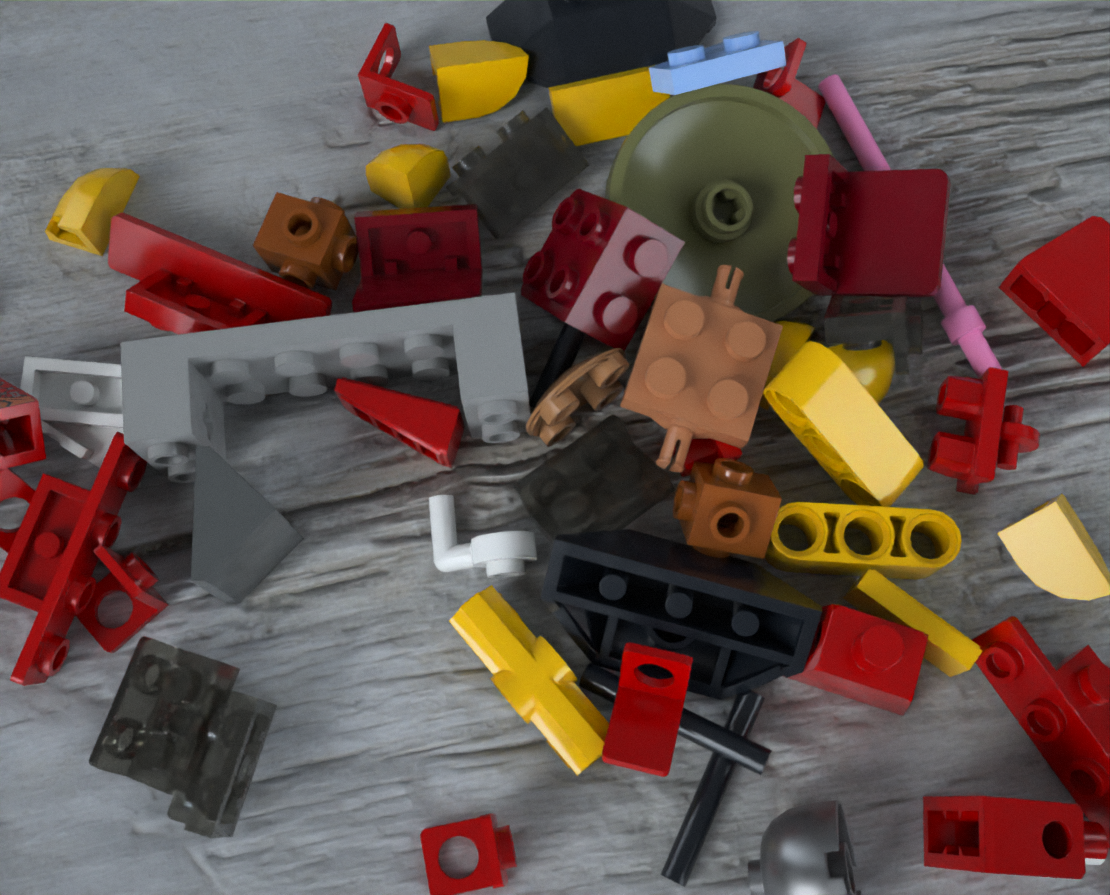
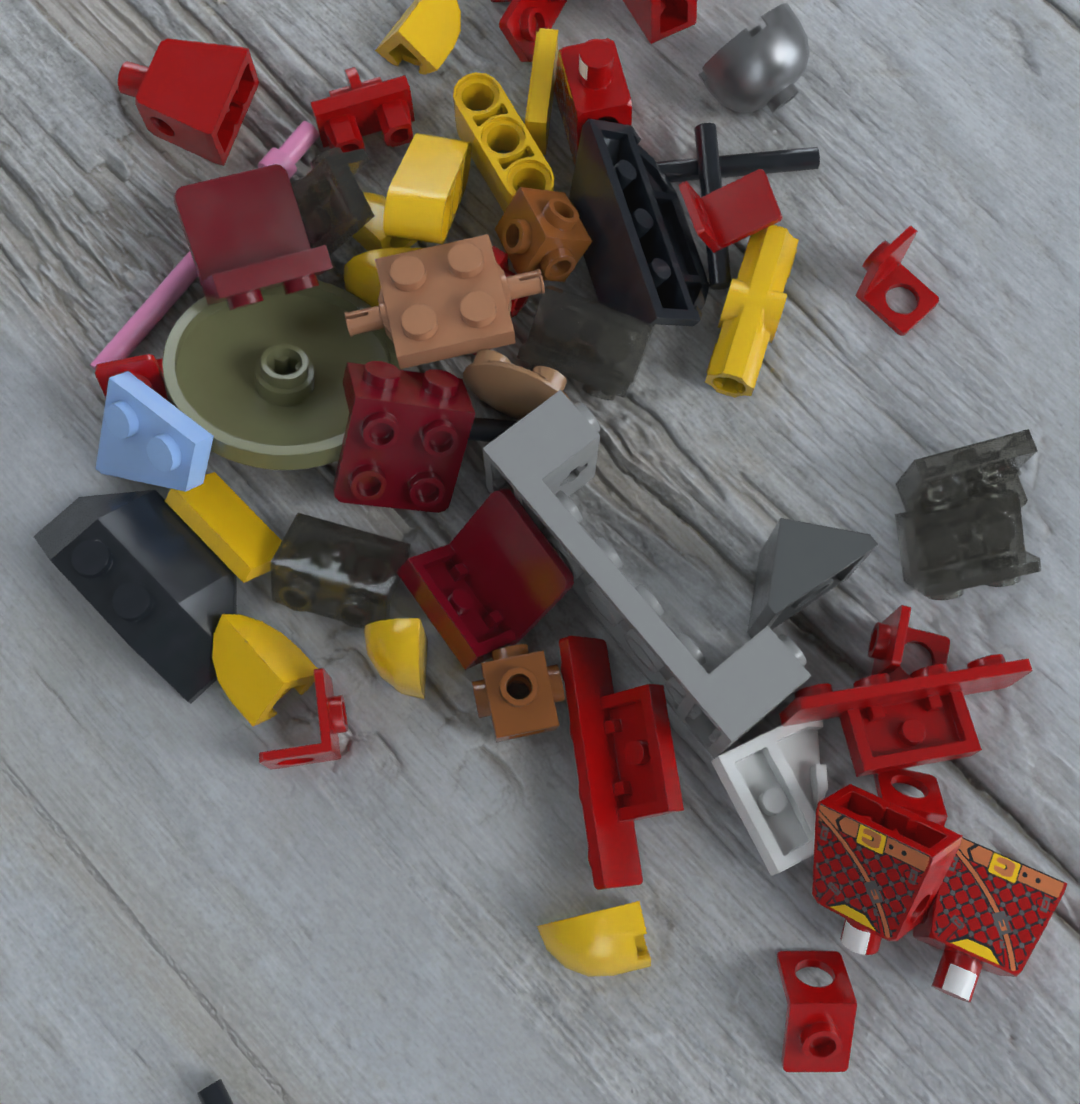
camera: 125 degrees left, 0 degrees up
(416, 421) = (616, 508): red slope -> none
(499, 552) = (677, 387): white plate -> none

